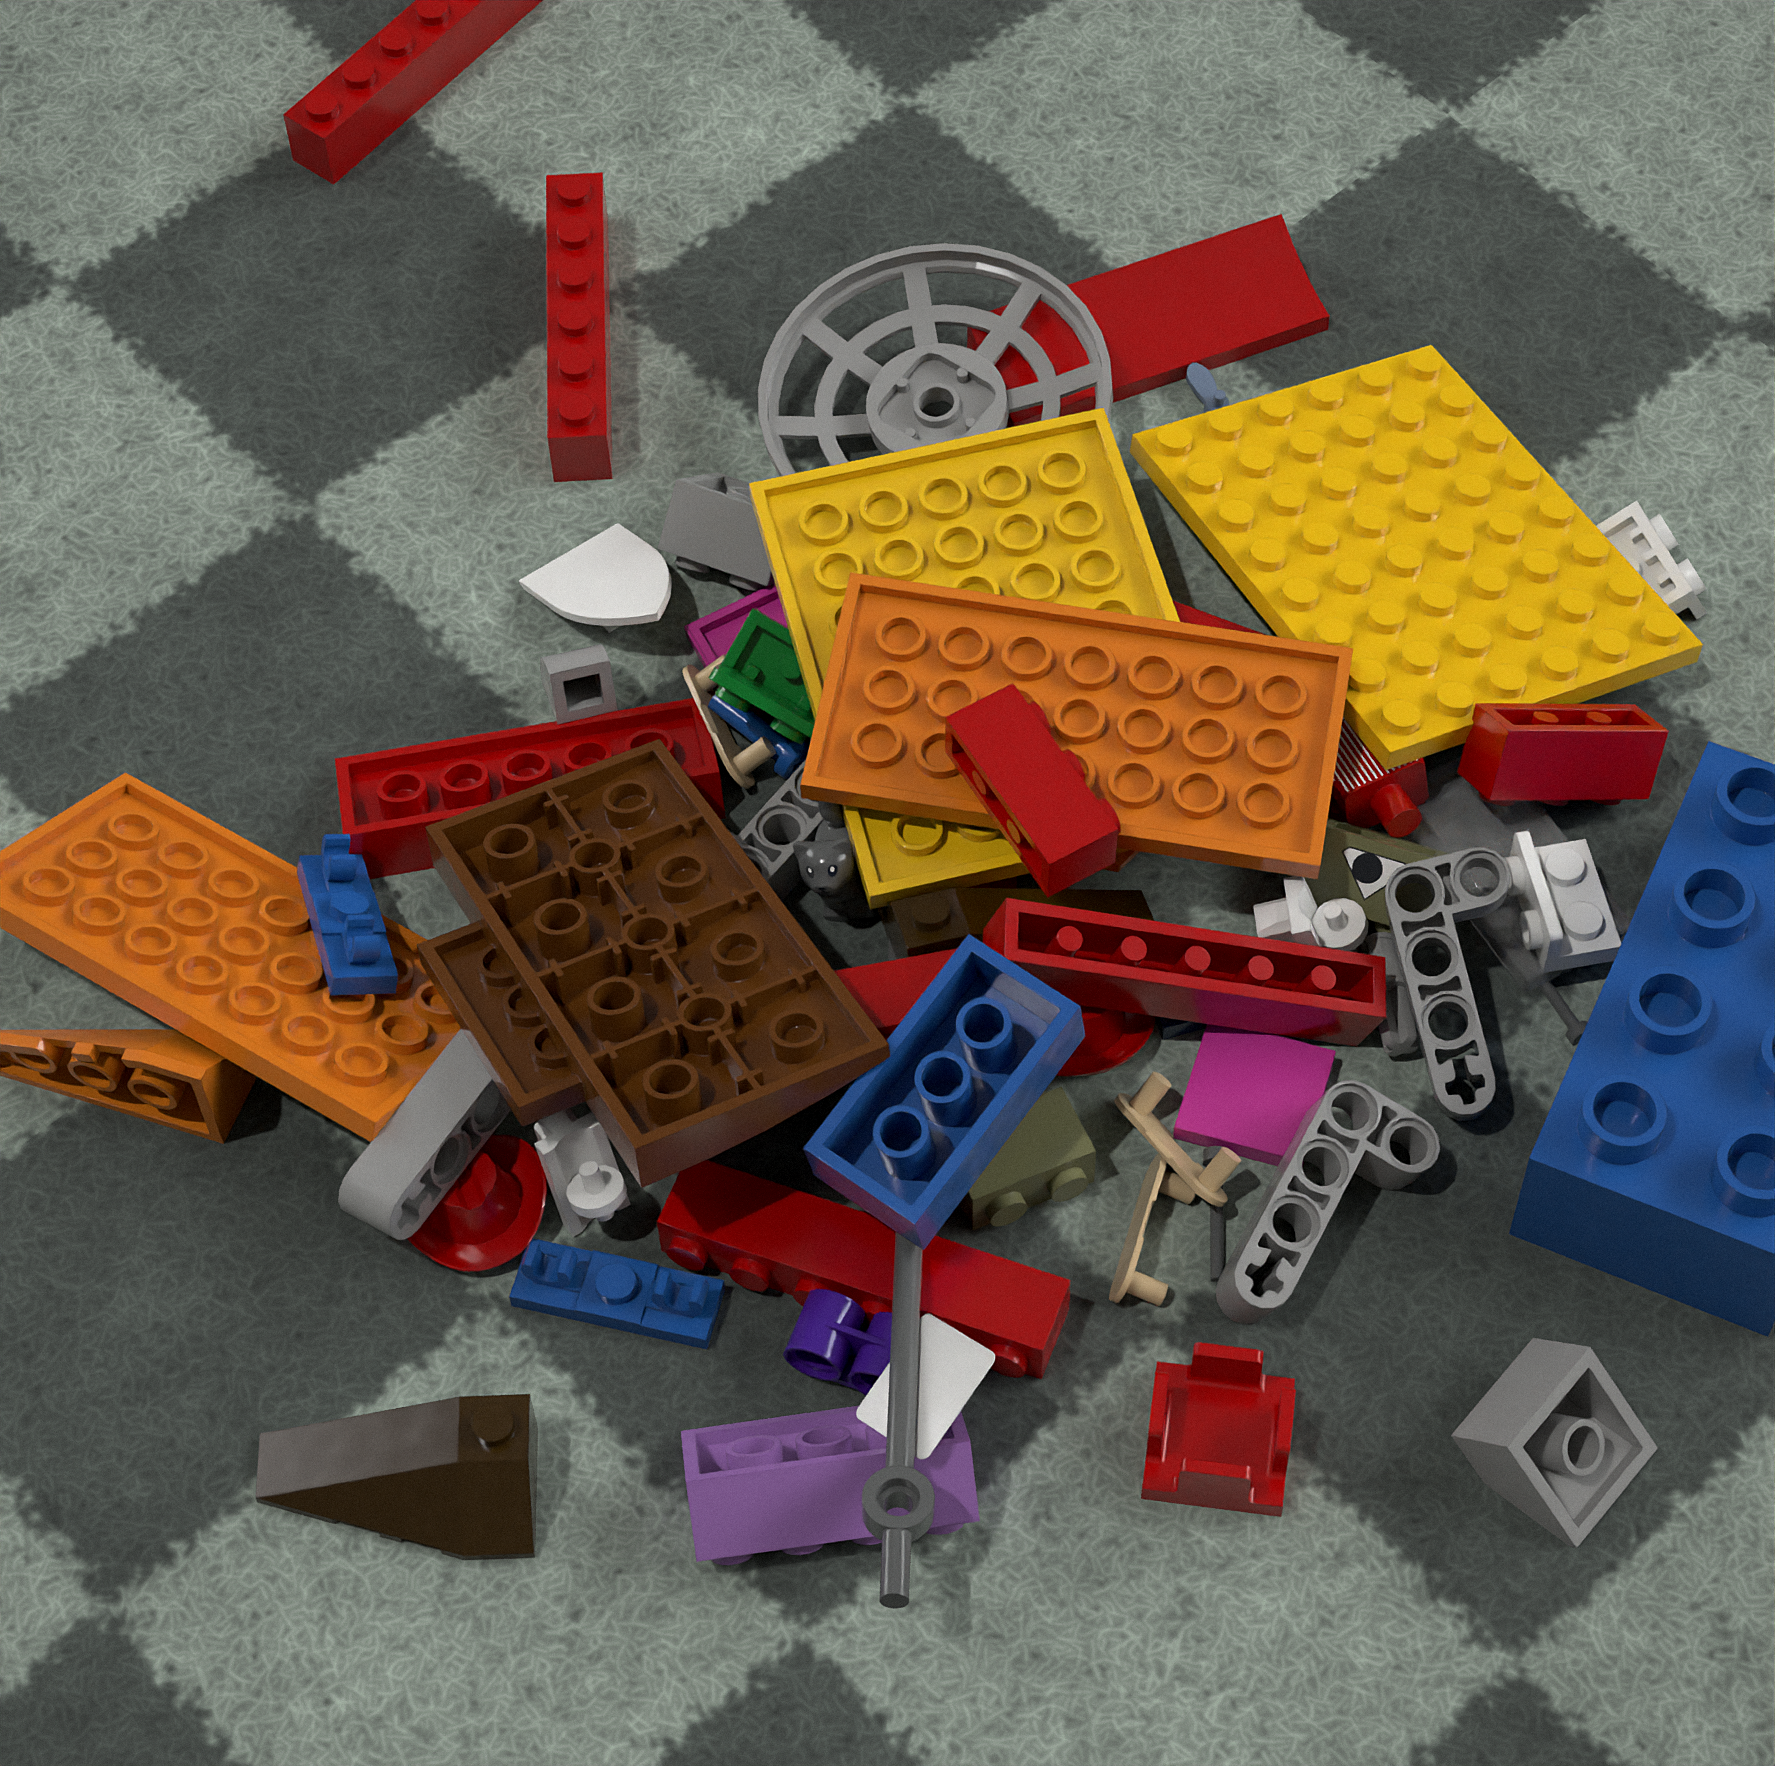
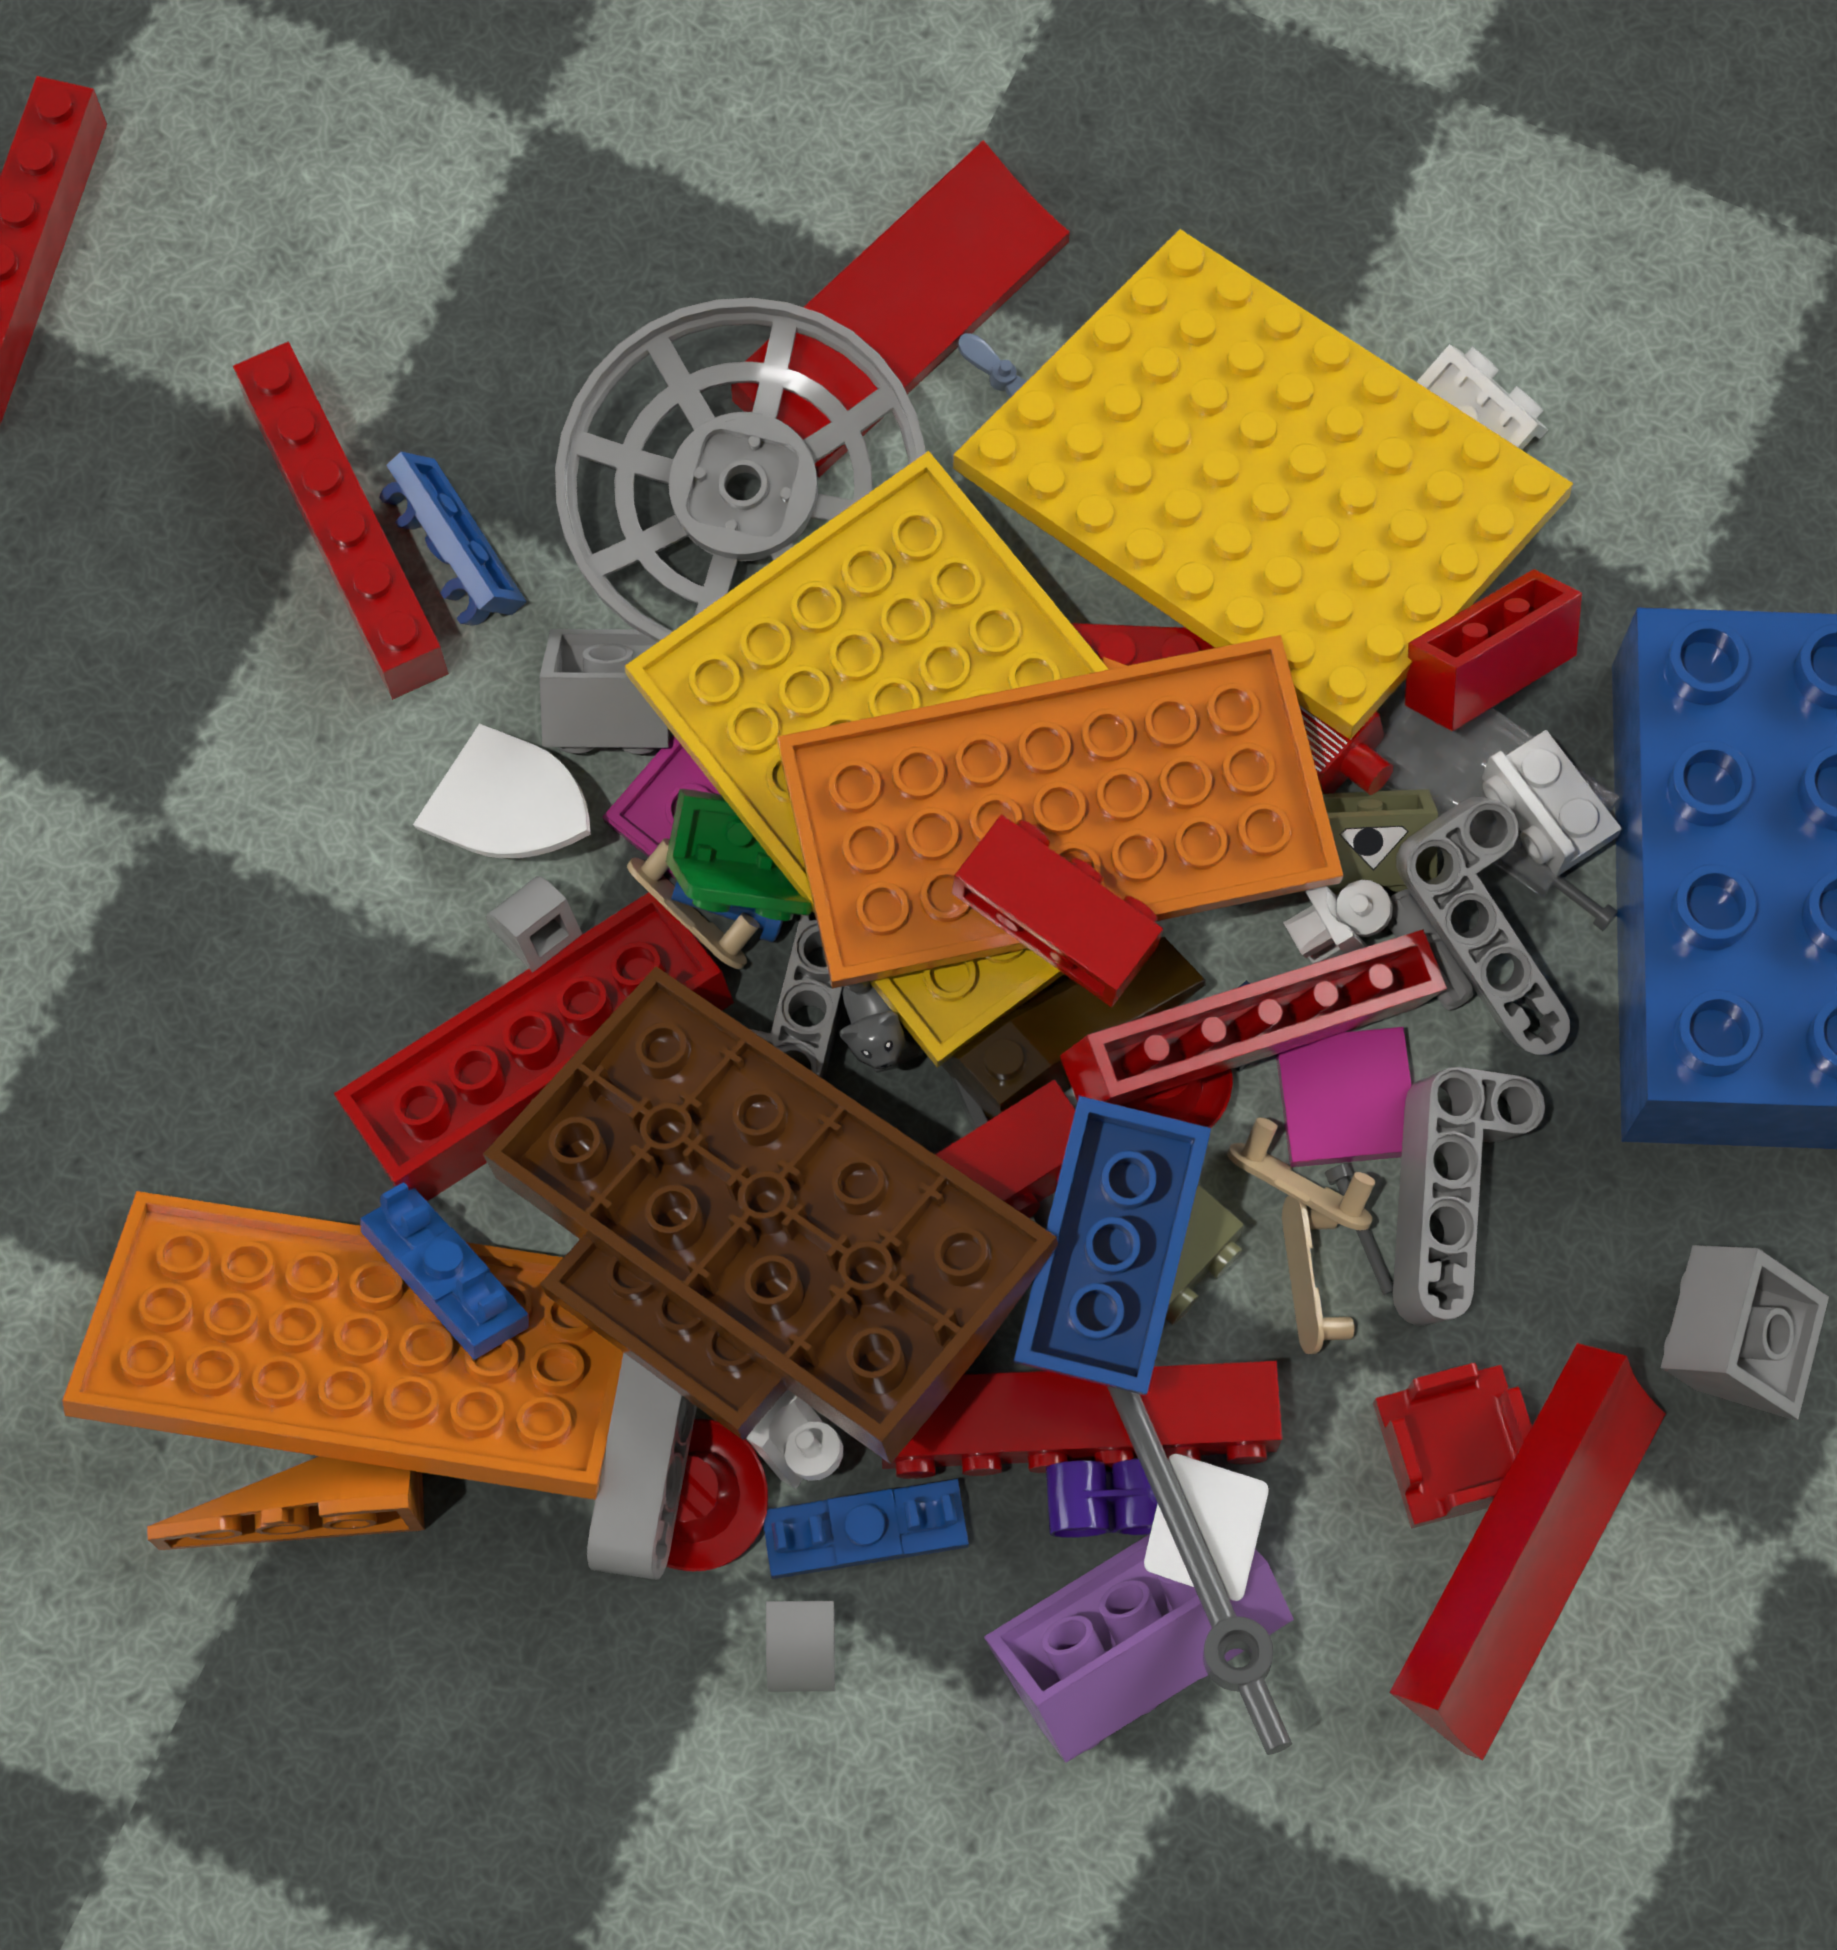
camera: 25 degrees left, 15 degrees up
(423, 1473) = (778, 1783): dark brown wedge -> none
(505, 1355) = (800, 1646): none -> light grey brick
(668, 370) = (451, 537): none -> blue plate
(1240, 1548) = (1529, 1550): none -> red arch

